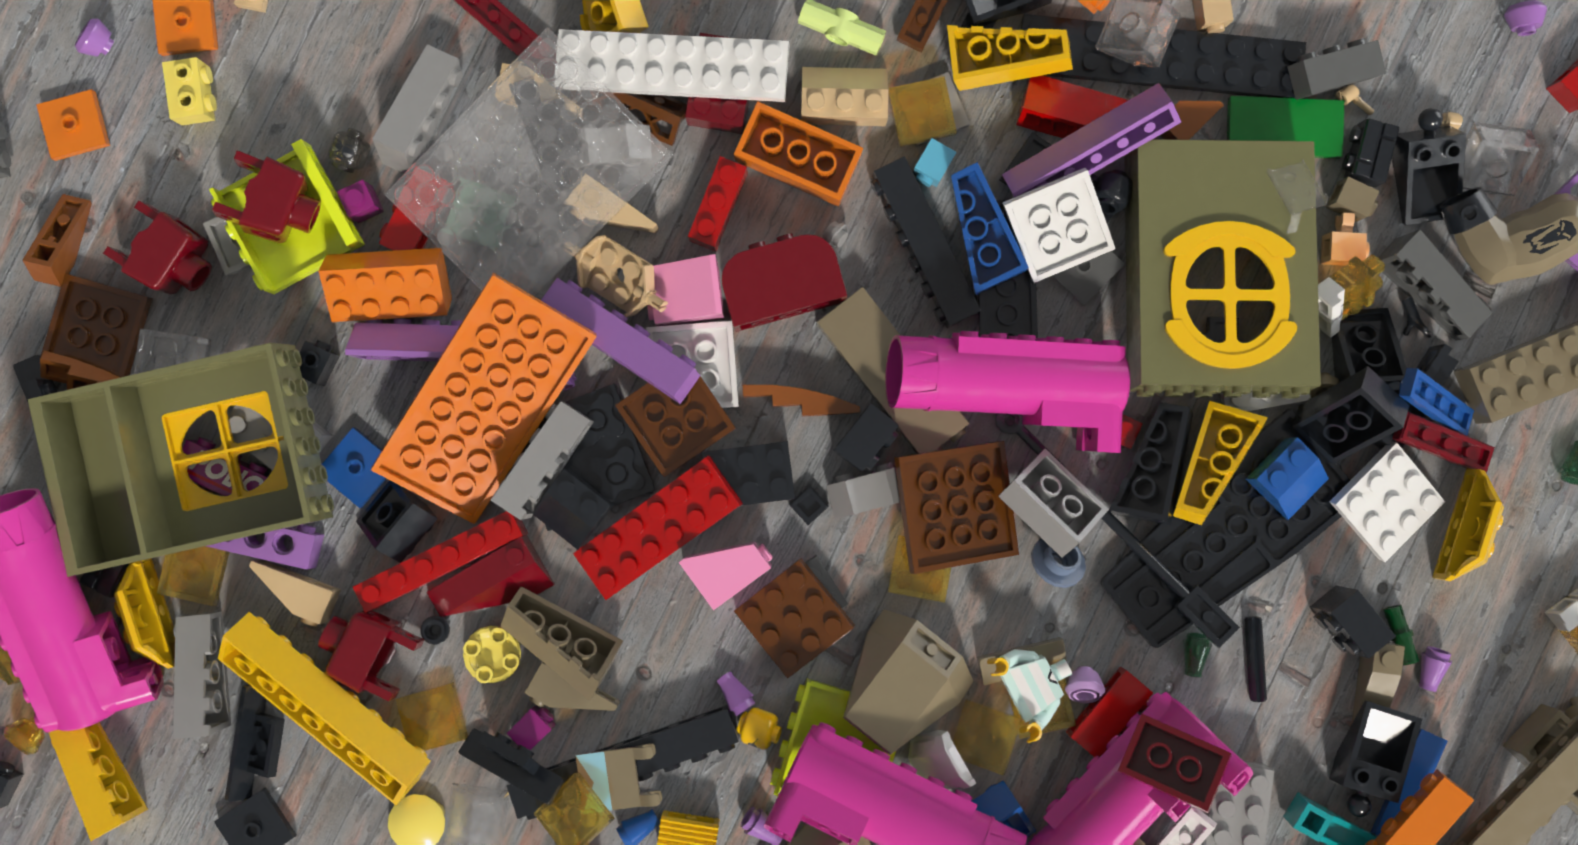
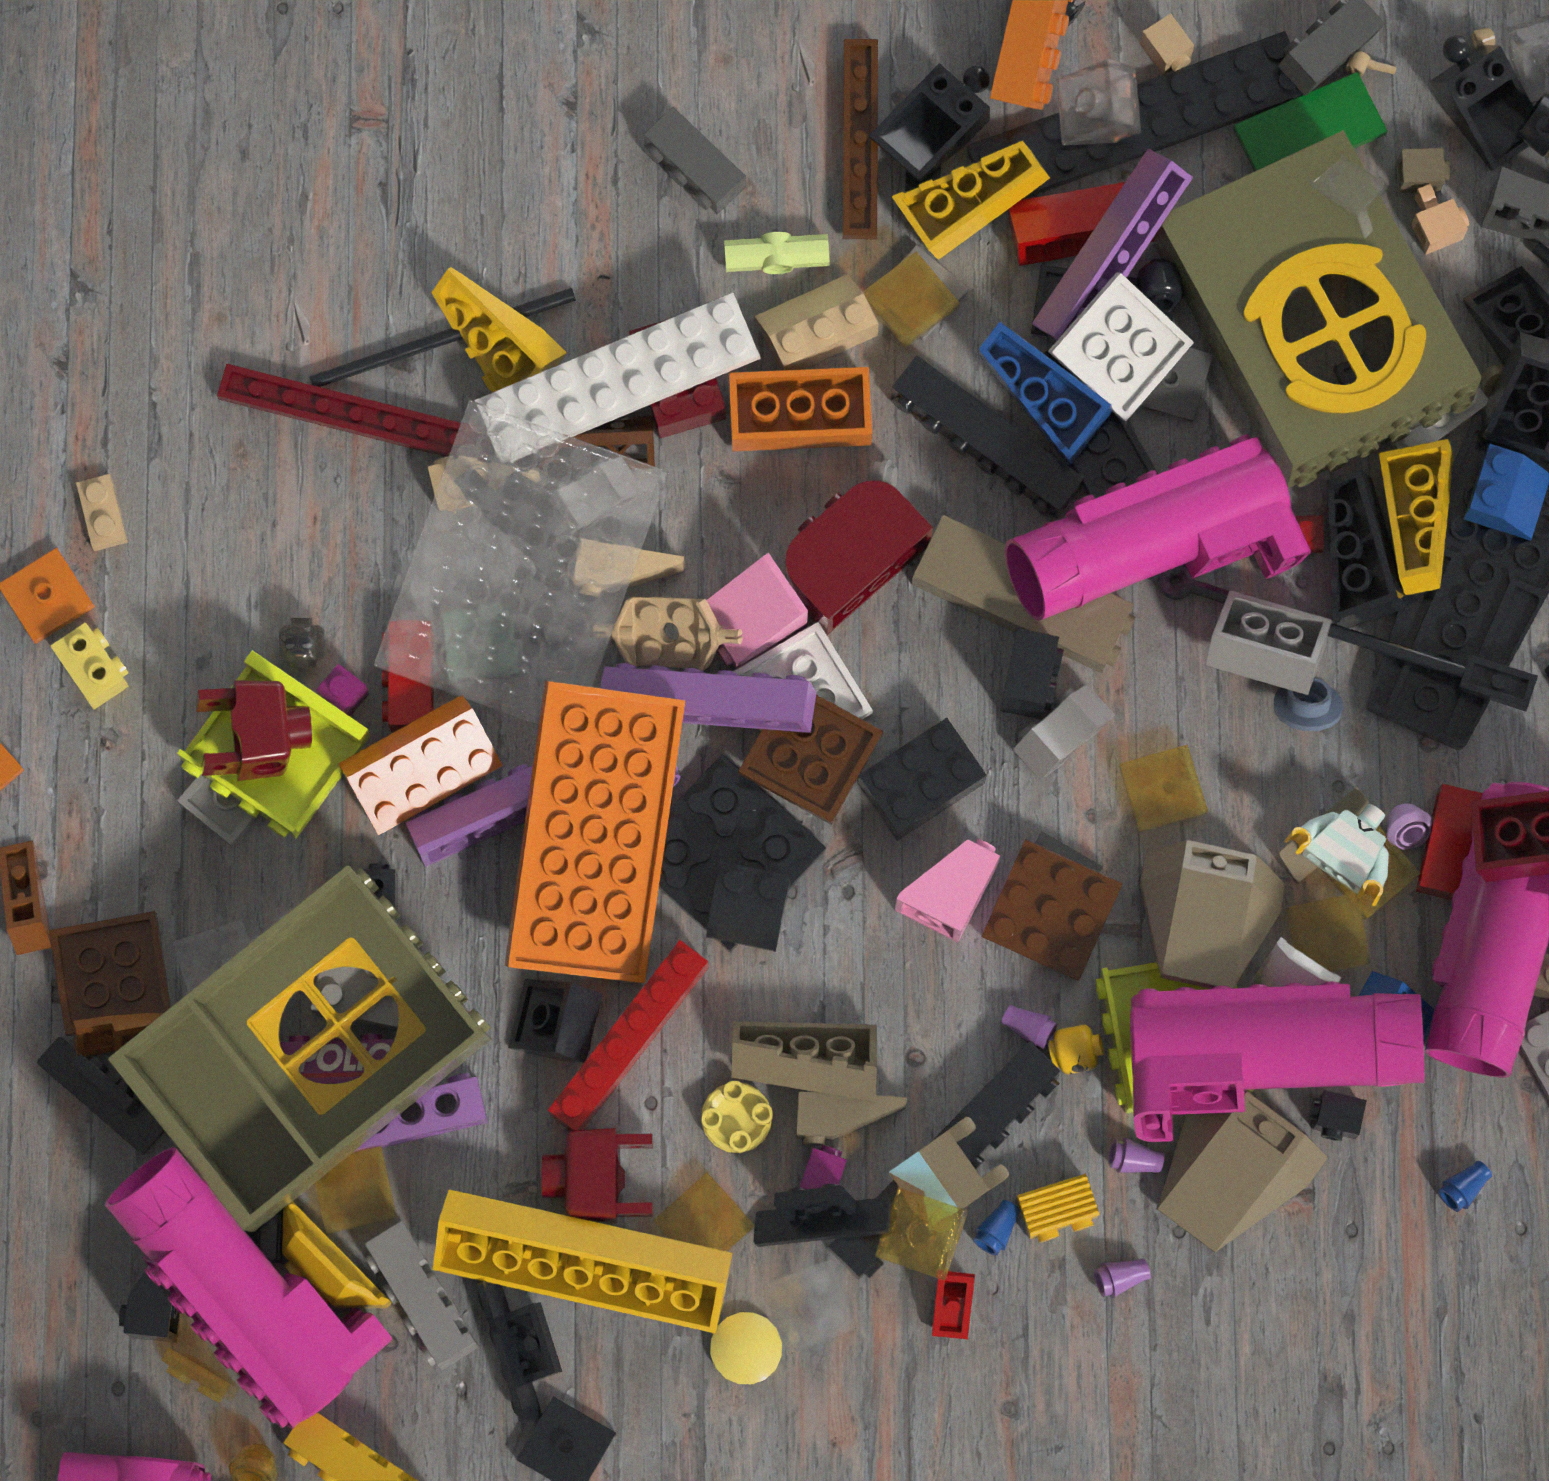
camera: 25 degrees left, 10 degrees down
(165, 254) = (155, 852): dark red piece -> none
(299, 593) = (494, 1154): tan slope -> none
(351, 465) = (485, 983): blue plate -> none
(417, 109) = (359, 563): light grey wedge -> none
(426, 631) = (659, 1111): black plate -> none
(493, 580) = (695, 1035): dark red wedge -> none
(542, 460) = (690, 867): light grey wedge -> none
(657, 527) = (851, 883): red plate -> none
(718, 204) = (739, 505): red brick -> none
(808, 505) = (1004, 782): black tile -> none
(812, 402) = (949, 667): dark orange slope -> none
(933, 163) = (951, 348): medium azure brick -> none
(955, 507) = (1165, 699): reddish brown plate -> none
(1193, 117) = (1204, 166): dark orange slope -> none
(1196, 652) = (1510, 732): clear green cone -> none
(1348, 291) = (1465, 270): clear yellow hips -> none
(1370, 152) = (1414, 112): black brick -> none

